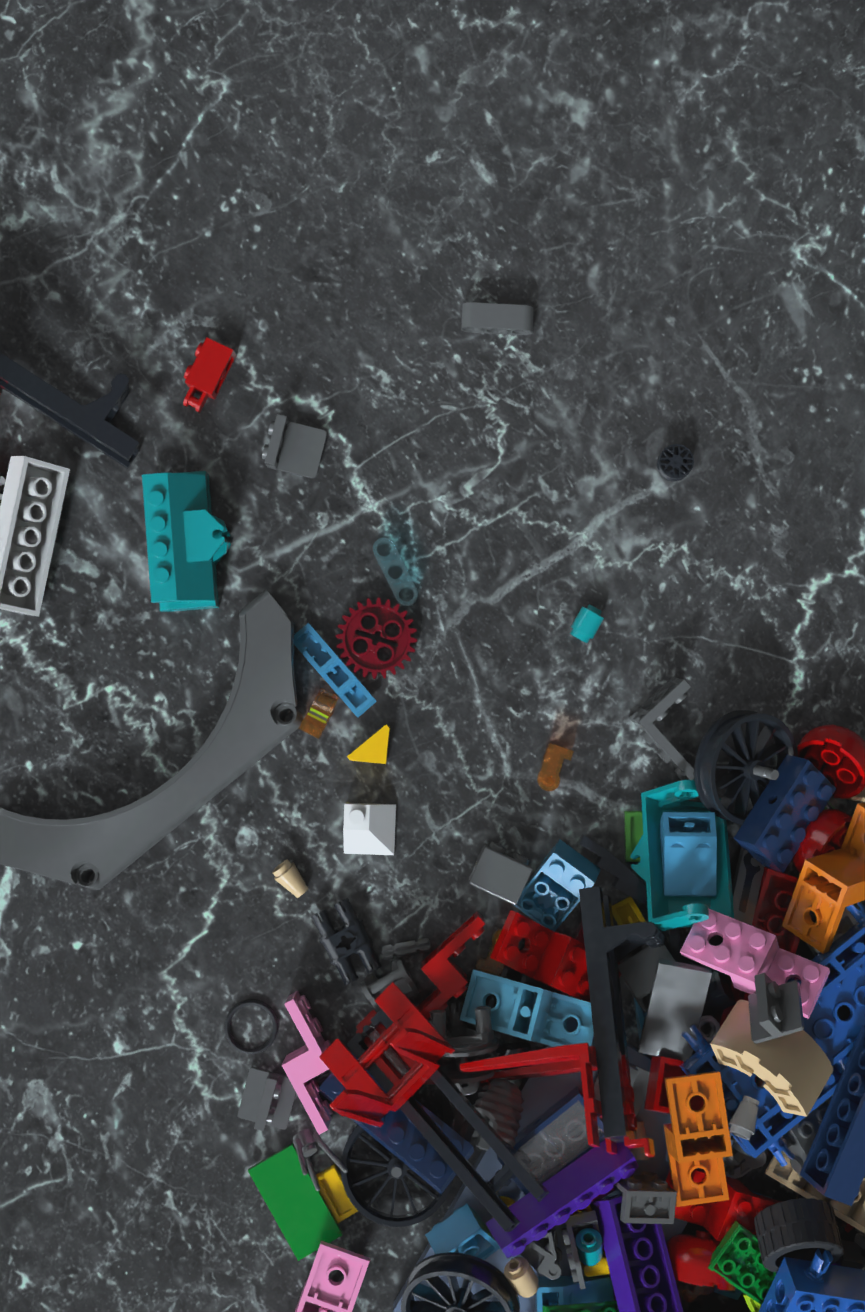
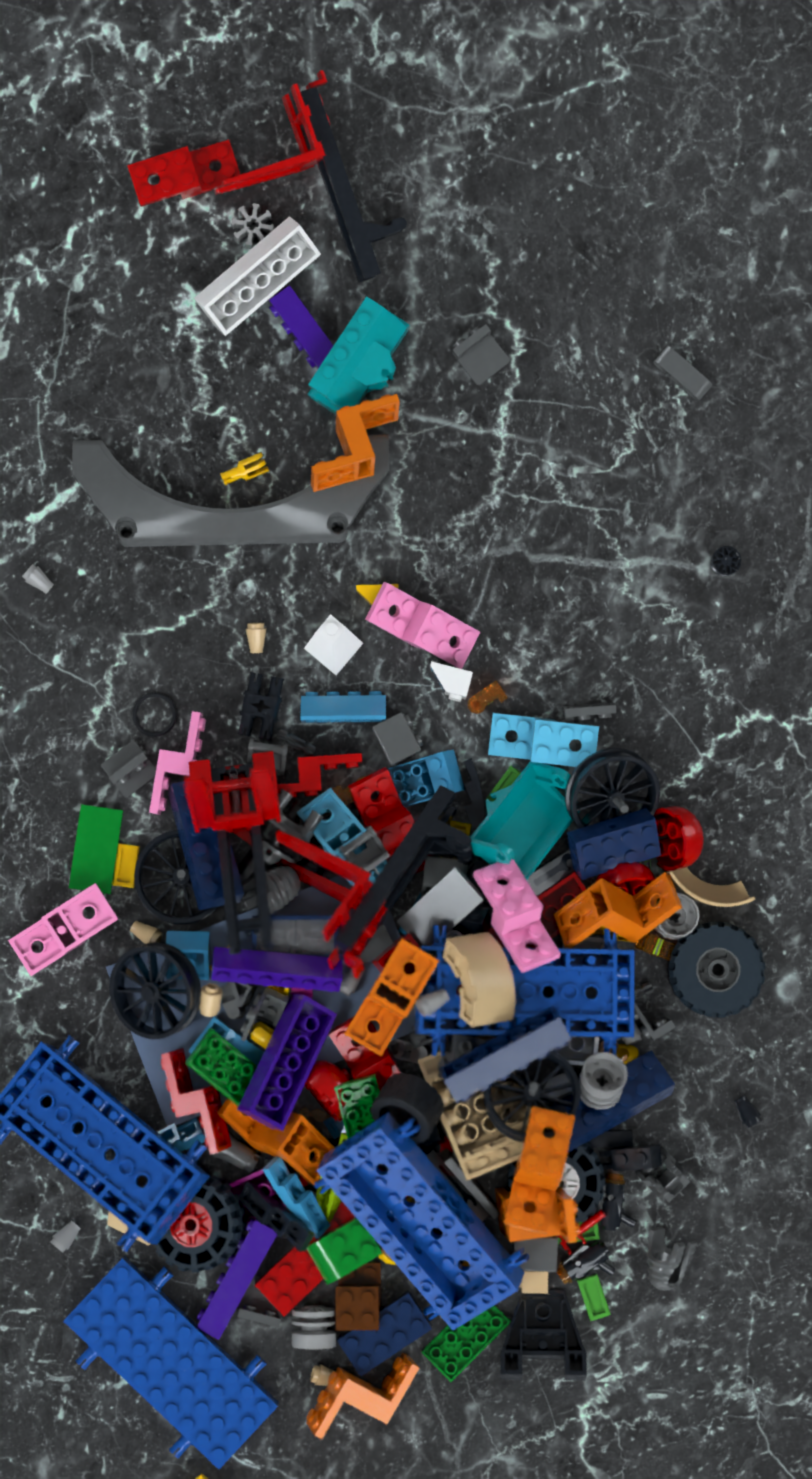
camera: 35 degrees right, 0 degrees up
(38, 986) = (37, 578): none -> light grey cone
(103, 550) = (301, 325): none -> dark purple brick
(155, 730) = (244, 468): none -> yellow arm
(207, 372) = (461, 260): red brick -> none
(255, 633) = (358, 455): none -> orange bracket
(305, 1145) = (132, 818): dark grey plant -> none
(319, 714) = (359, 544): clear orange leg -> none
(333, 670) = (391, 522): dark azure slope -> none
(369, 659) = (452, 512): dark red gear -> none
(390, 561) = (482, 479): clear light blue beam -> none
(406, 1244) = (146, 932): none -> tan cone
(426, 883) = (343, 708): none -> dark azure slope
(439, 745) = (422, 625): none -> bright pink bracket
(510, 776) = (452, 680): none -> white slope
(566, 1016) = (369, 857): none -> dark grey piece
(586, 623) = (583, 622): teal brick -> none
(589, 1246) = (267, 1017): teal brick -> none
(638, 765) = (541, 739): none -> medium azure bracket
(647, 1199) = (327, 1016): dark grey bracket -> none
(688, 853) = (530, 820): dark azure slope -> none
(774, 1009) = (504, 946): dark grey bracket -> none

